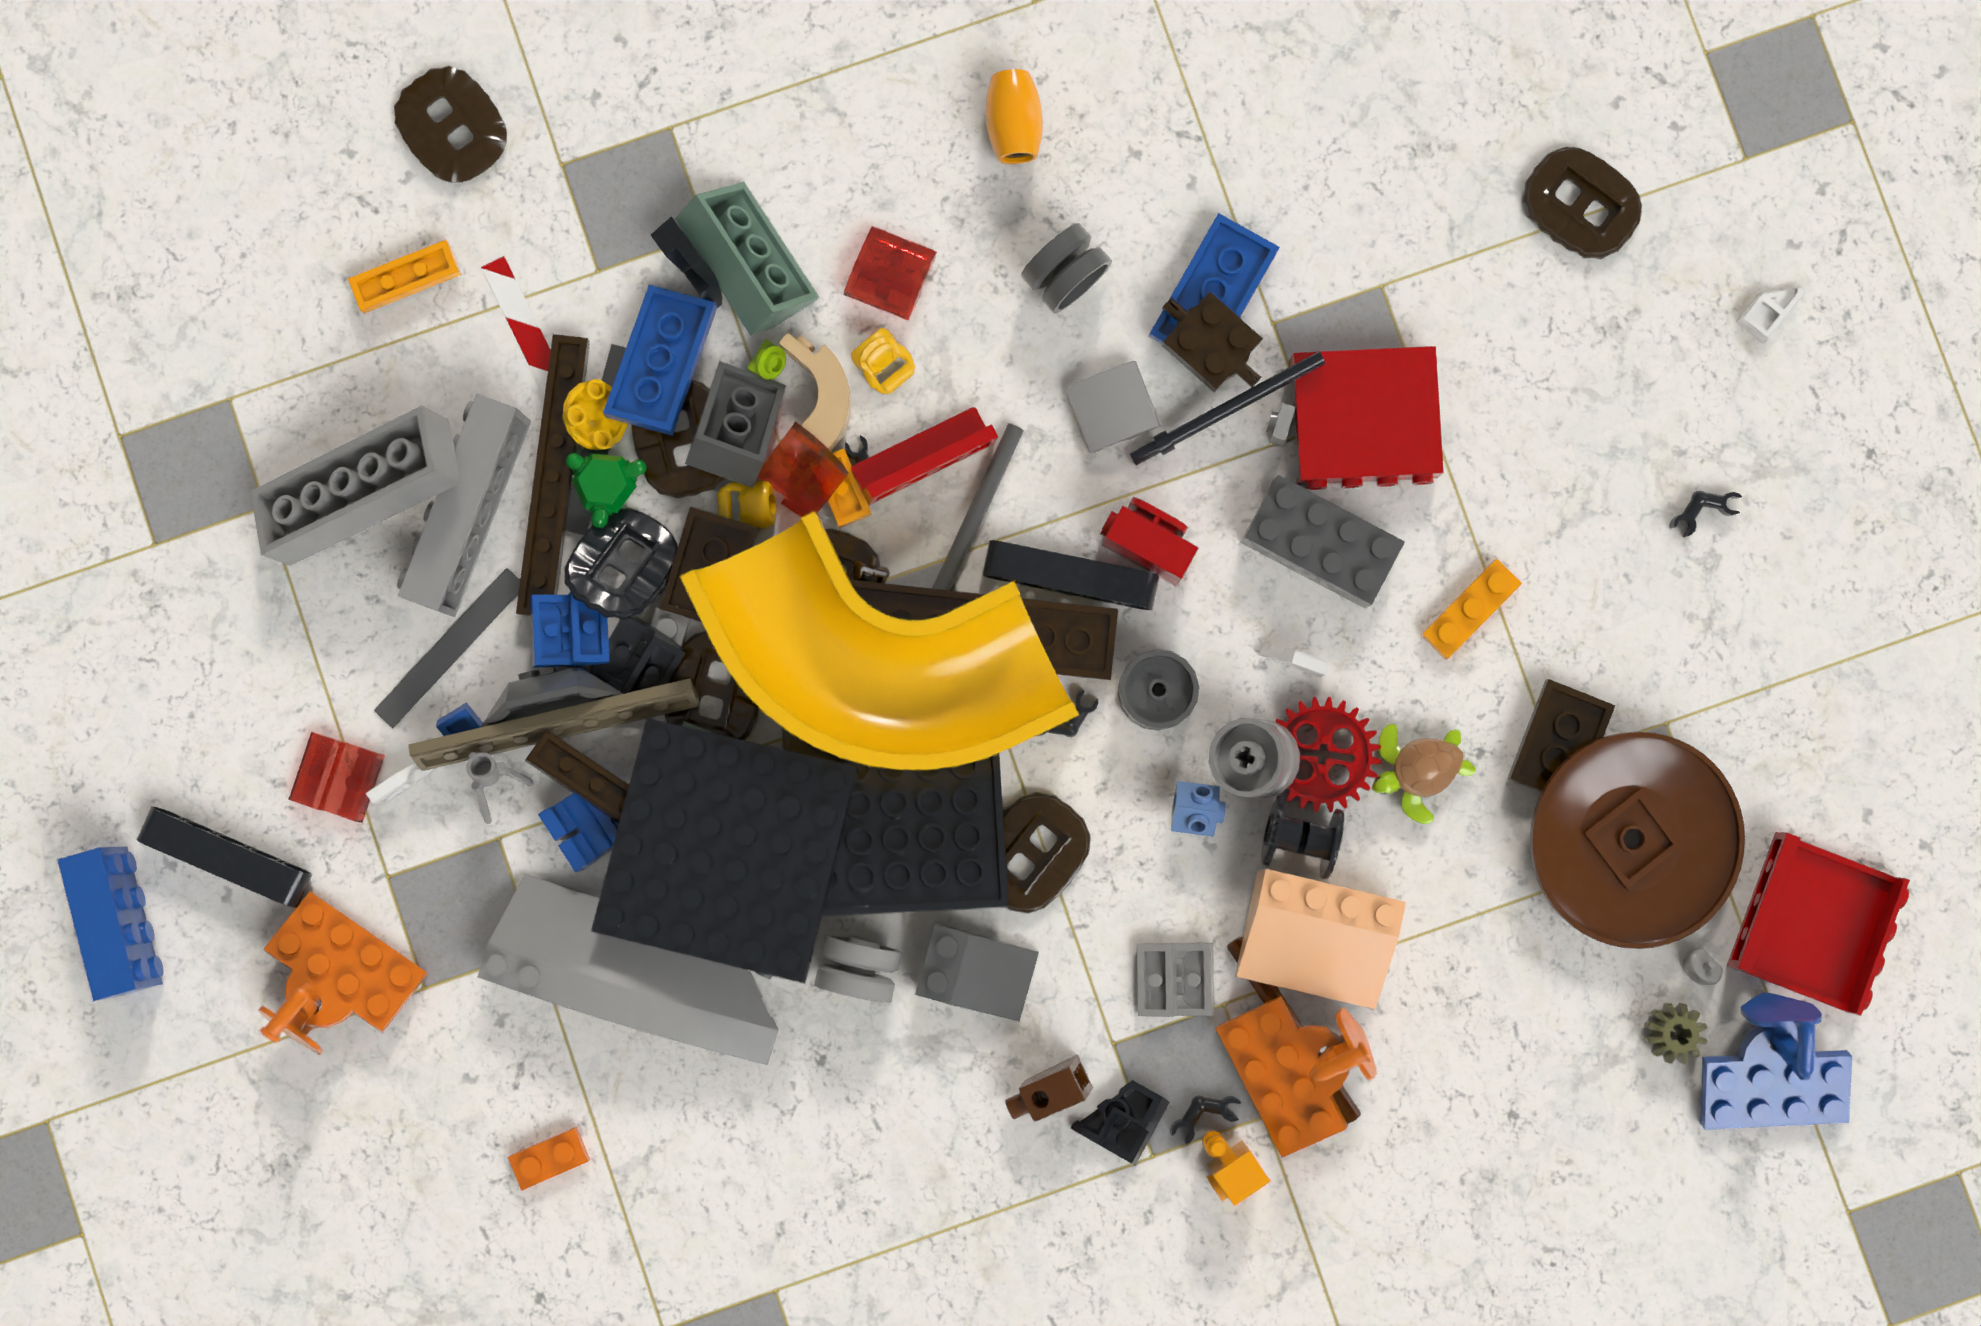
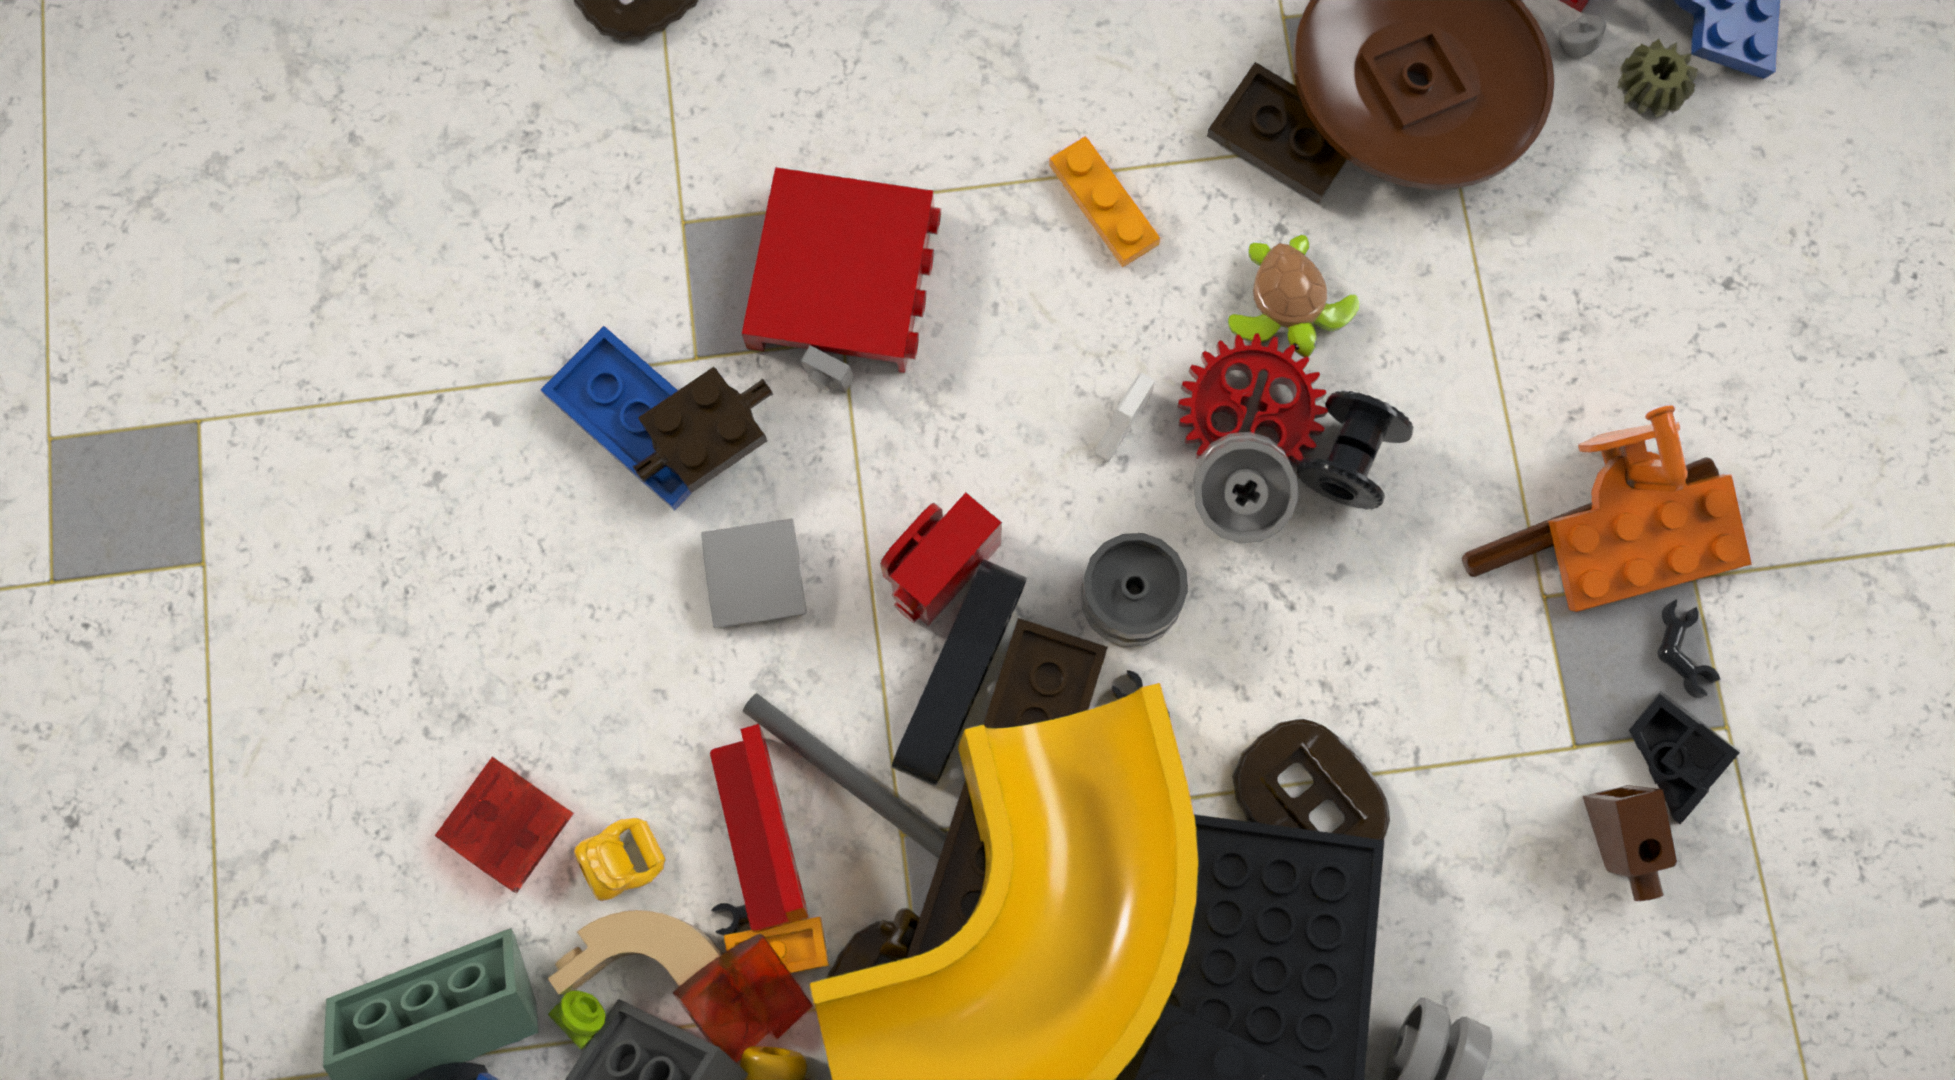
camera: 80 degrees left, 10 degrees down
(976, 972) = (1458, 907): dark grey slope -> none
(1014, 116) = (343, 616): light orange piece -> none
(1066, 268) = (553, 592): dark grey wheel -> none
(1165, 442) = (815, 517): black bar -> none
(1175, 979) = (1505, 649): light grey slope -> none
(1197, 809) = (1294, 574): medium blue brick -> none
(1233, 1170) = (1767, 622): light orange brick -> none
(1319, 938) = (1483, 459): light nougat slope -> none
(1322, 542) = (985, 352): dark grey brick -> none

